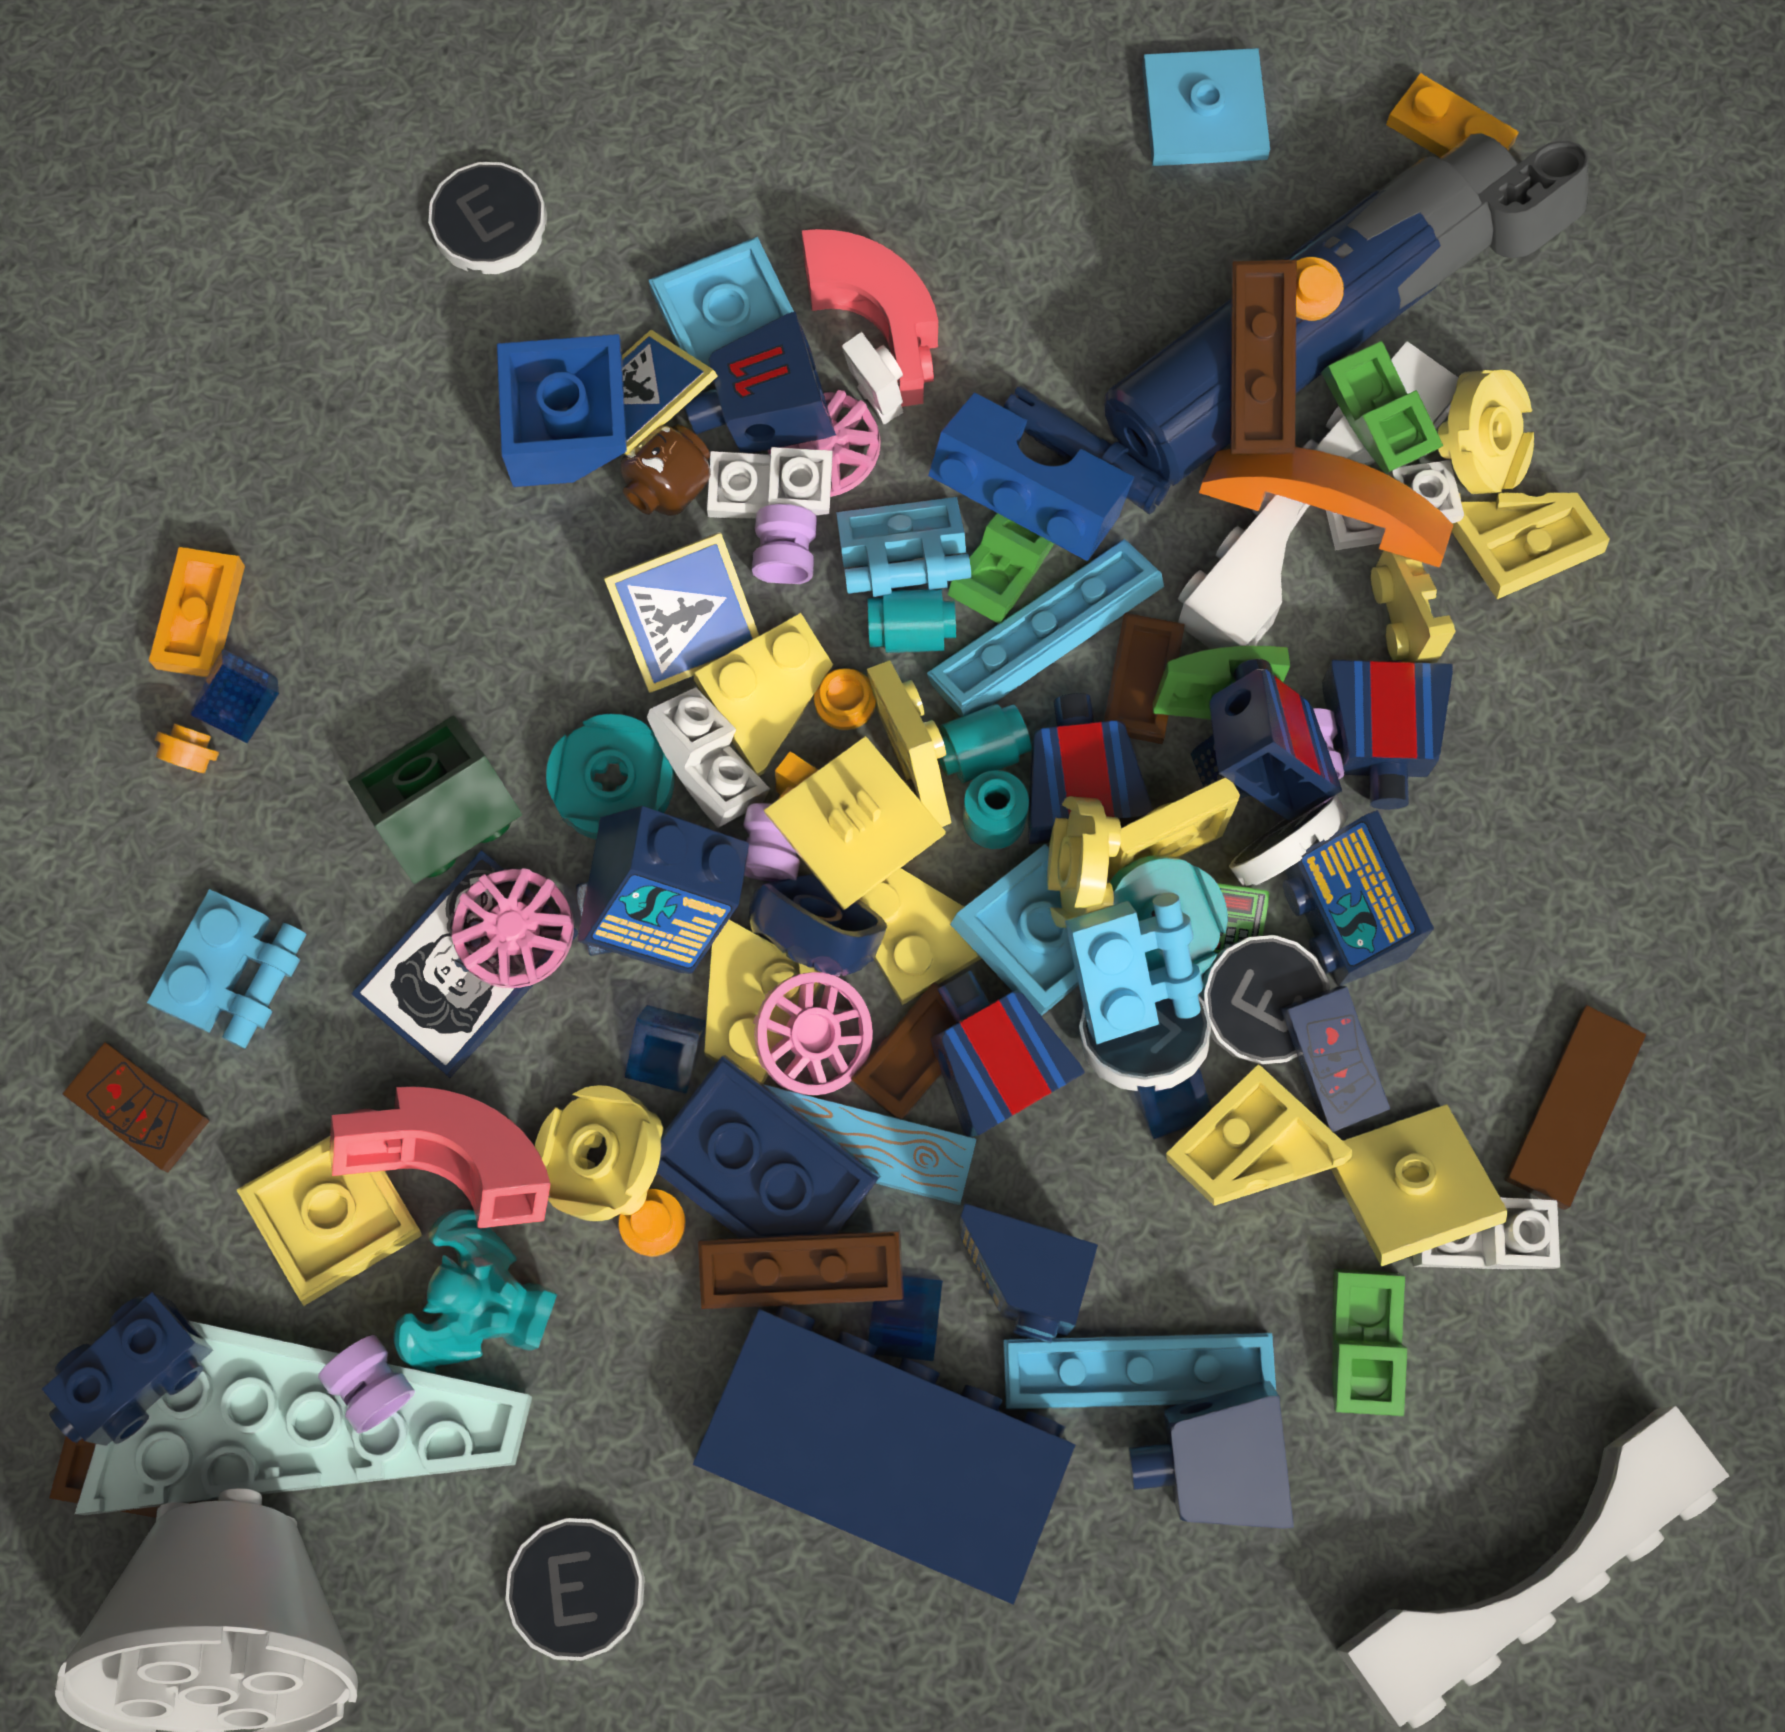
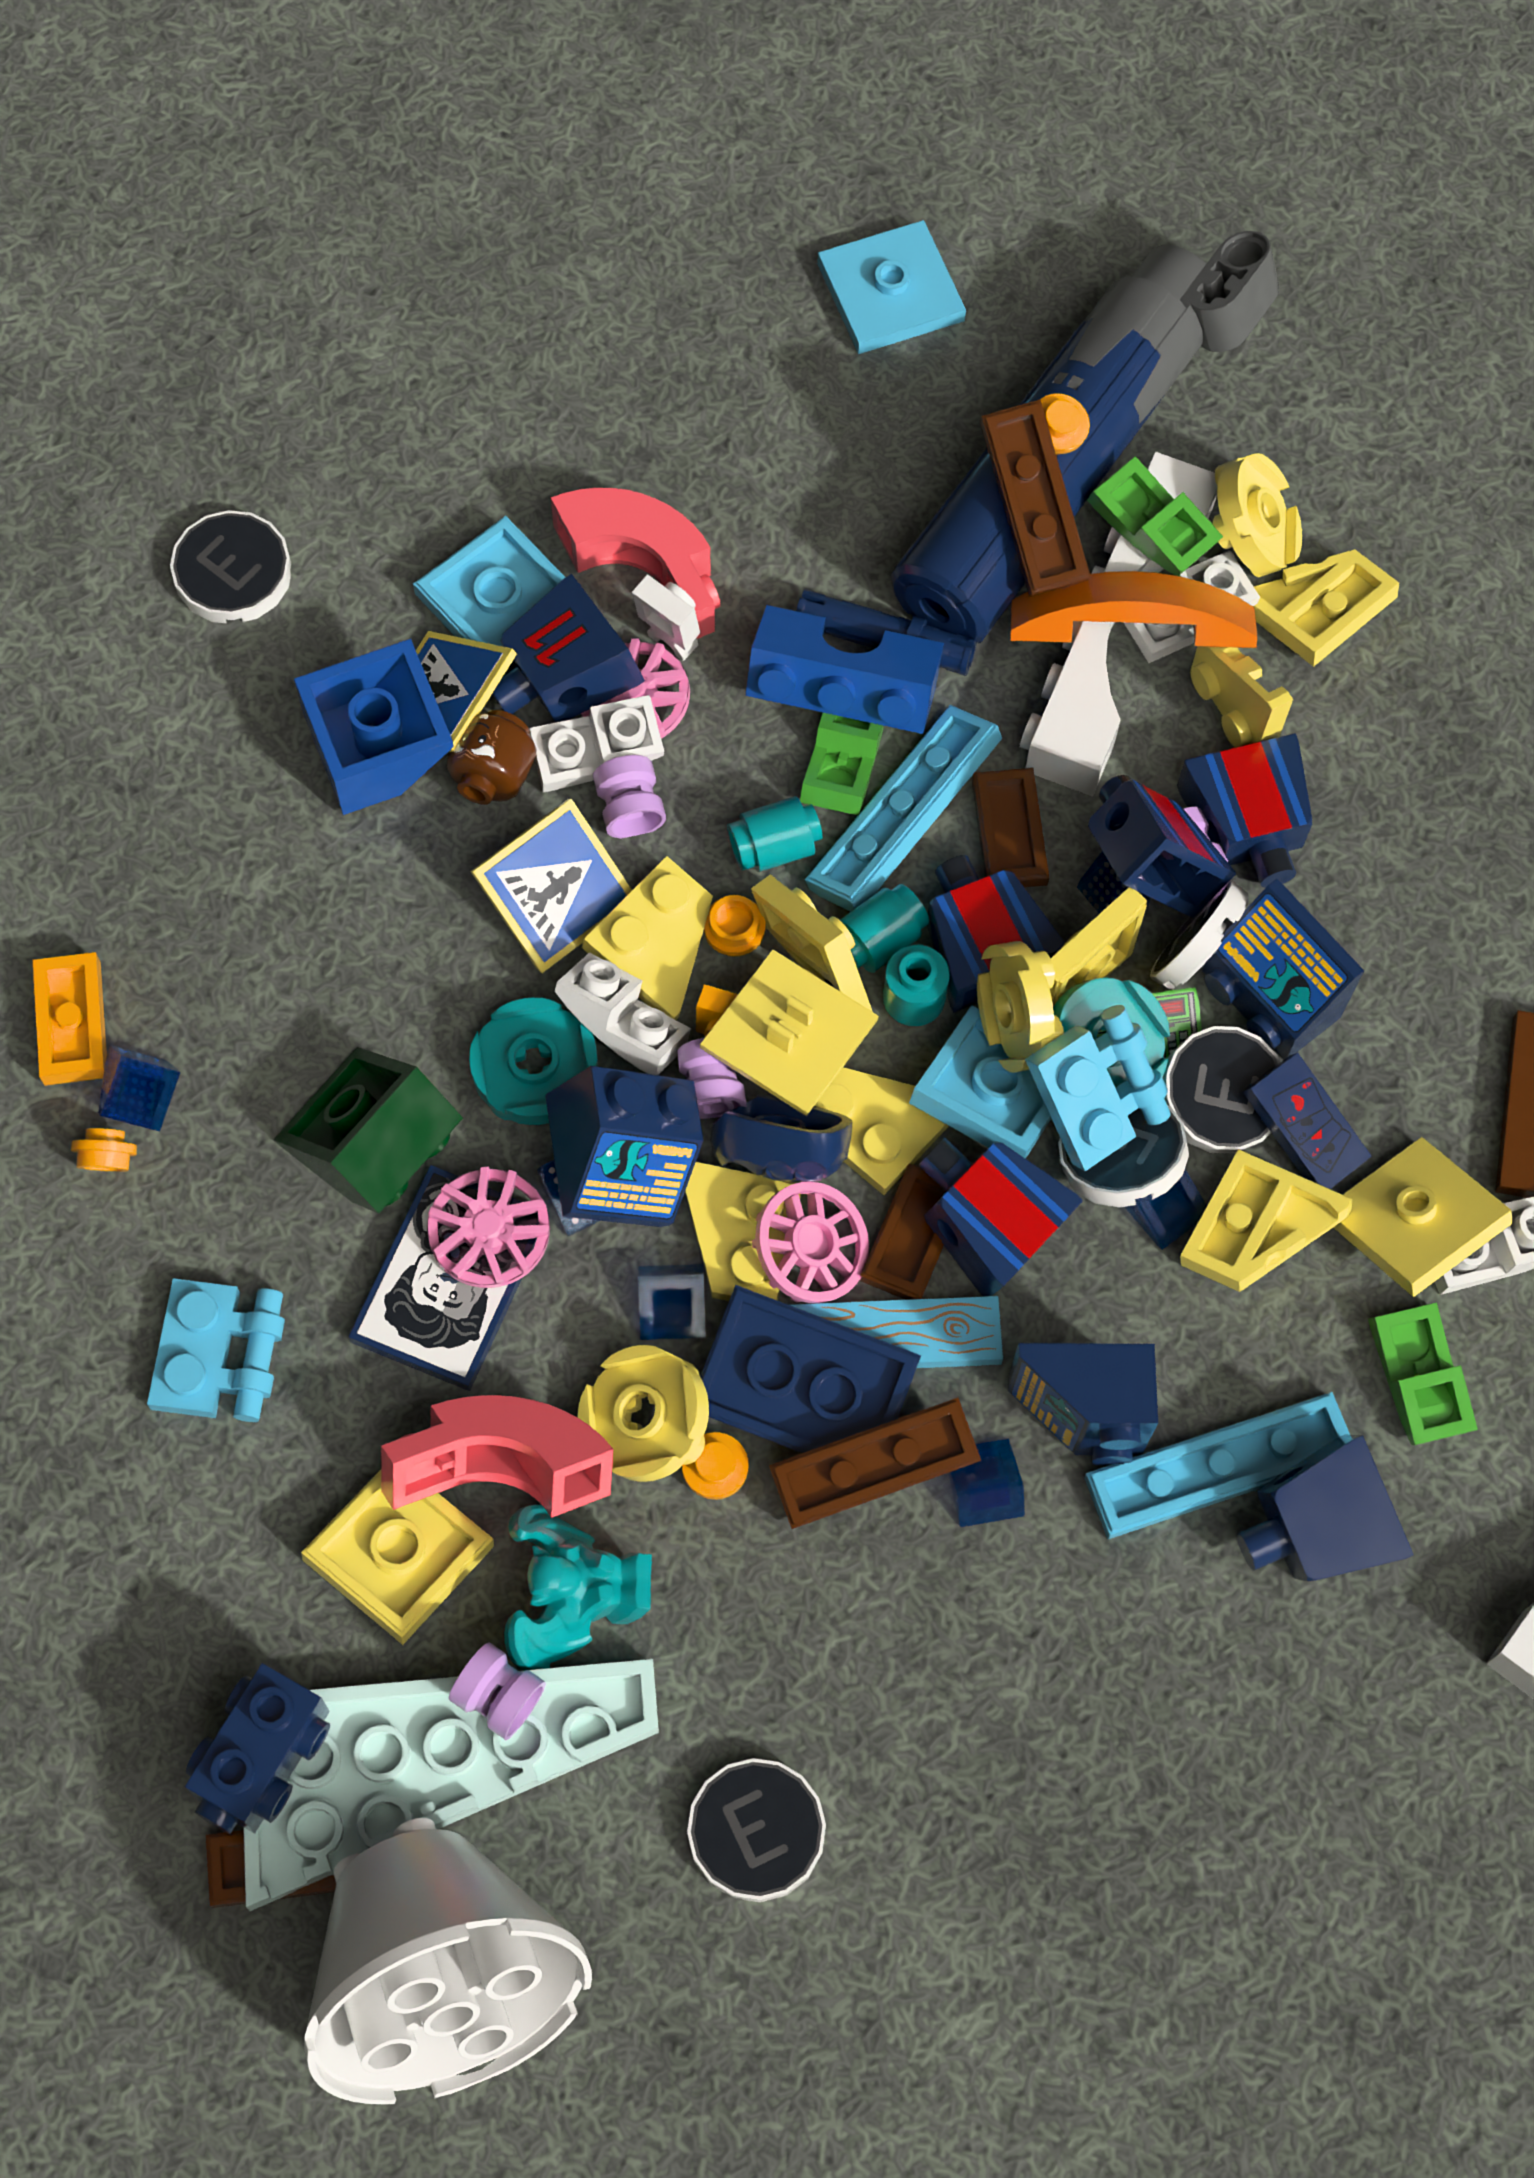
camera: 20 degrees left, 5 degrees down
(136, 1107) = (168, 1508): reddish brown tile -> none
(887, 1452) = (1013, 1609): dark blue brick -> none
(903, 533) = (727, 759): medium azure plate -> none
(1196, 677) = (1065, 811): bright green slope -> none
(1443, 119) = (1116, 242): light orange plate -> none

